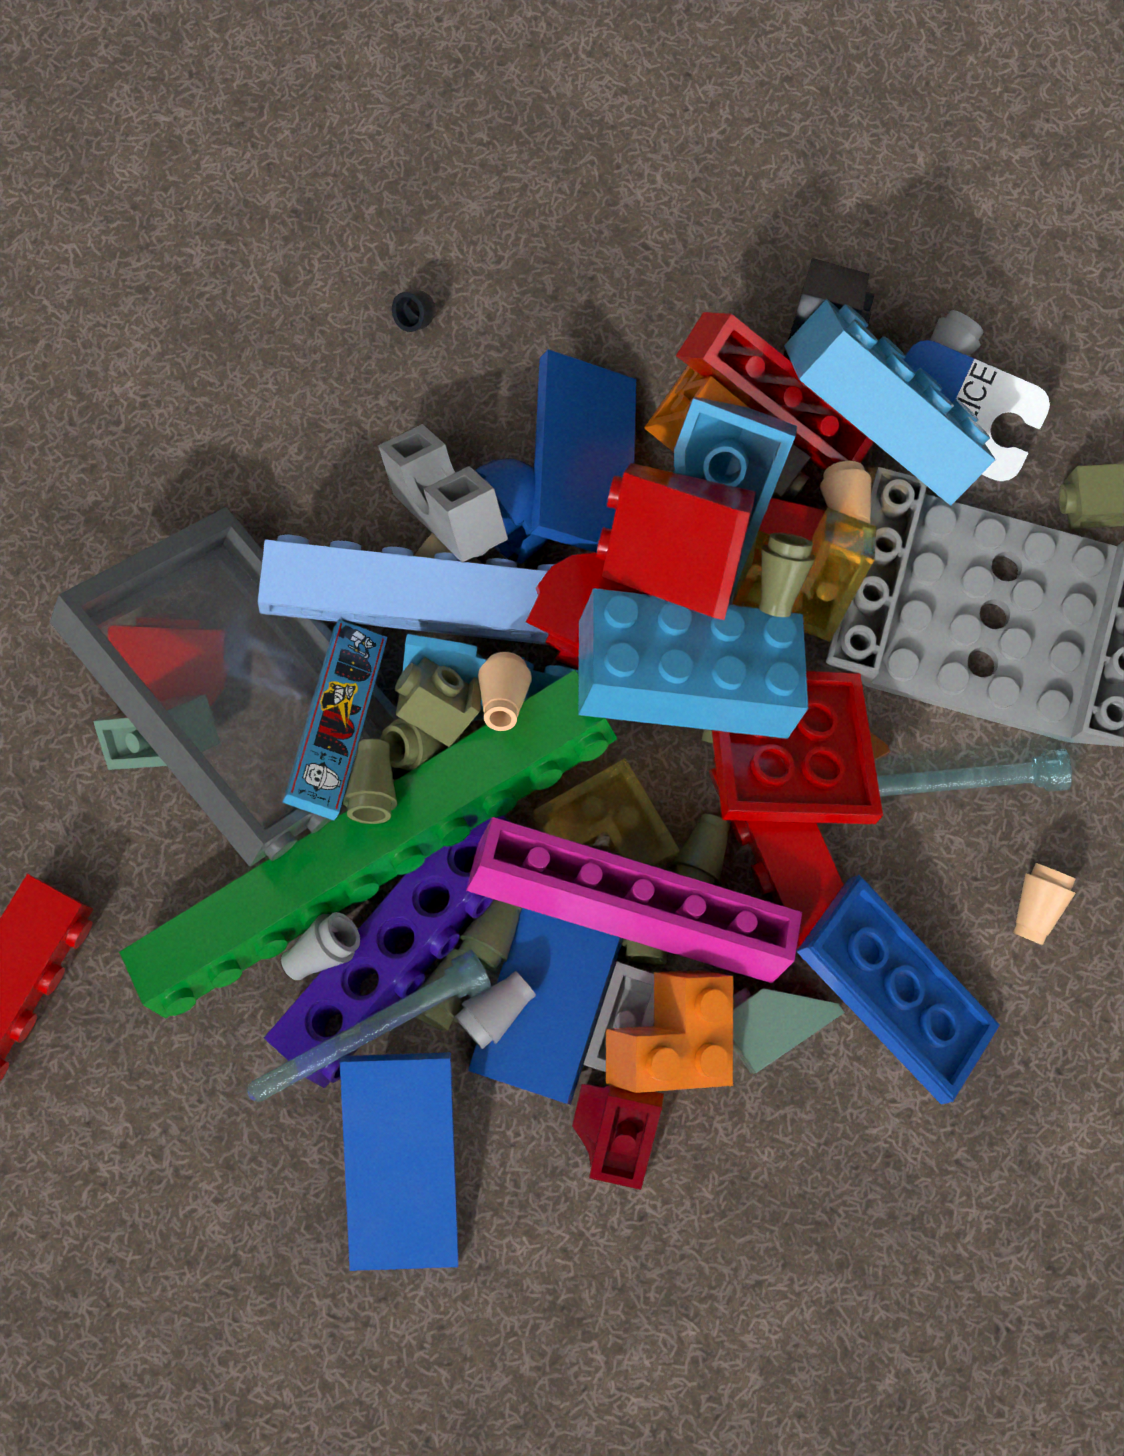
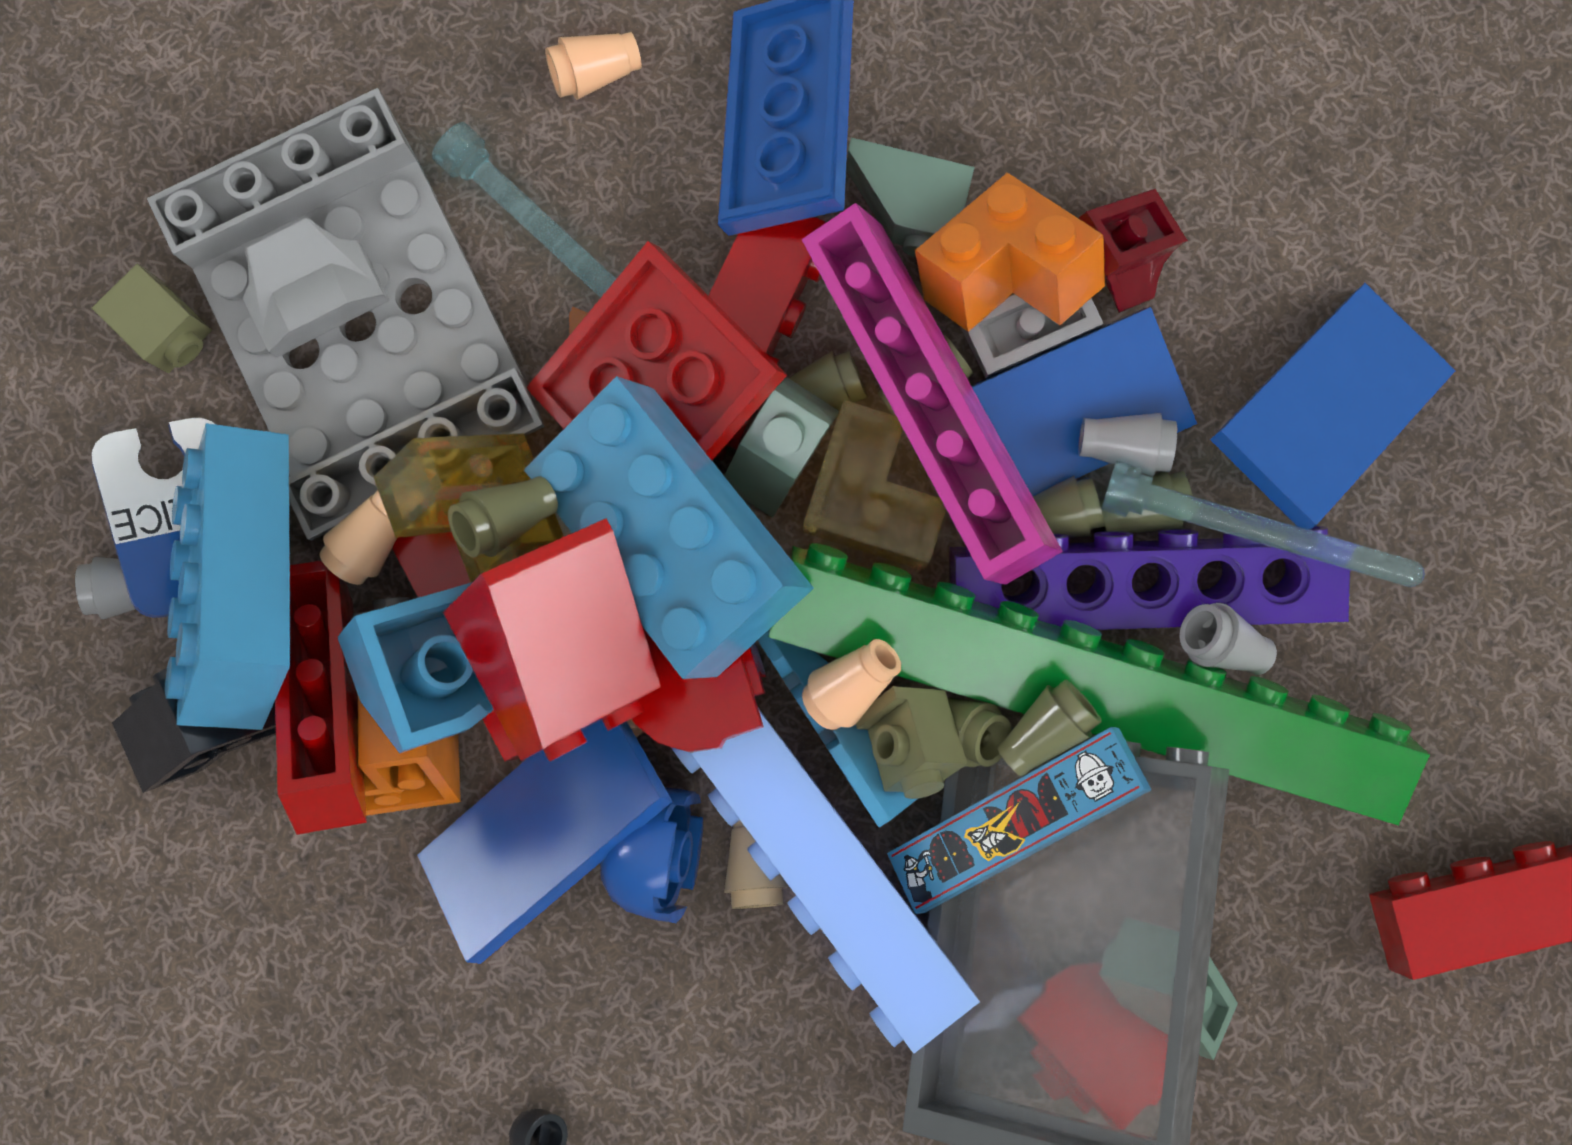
camera: 125 degrees left, 5 degrees up
(452, 505) = (710, 907): light grey arch -> none
(688, 796) = (779, 445): none -> sand green slope
(1040, 600) = (307, 285): none -> light grey slope

